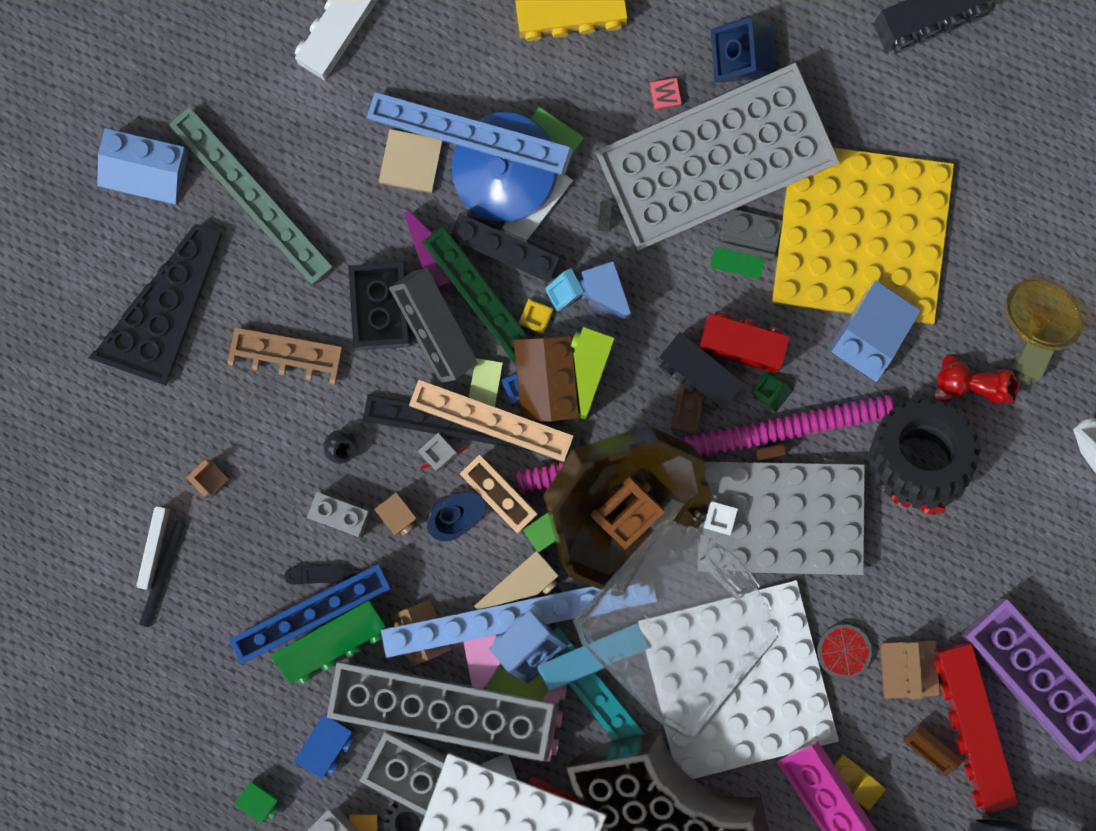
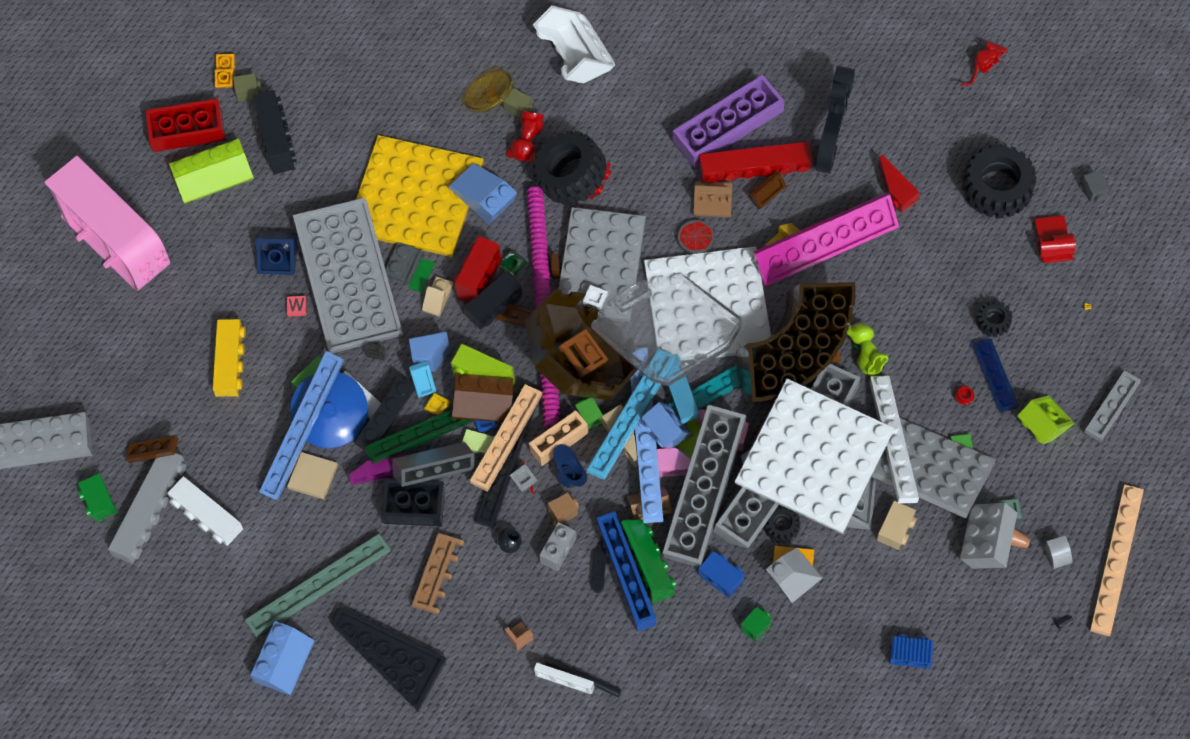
camera: 80 degrees left, 20 degrees down
(510, 581) = (623, 428): none -> medium azure tile
(704, 290) = (437, 296): none -> tan slope

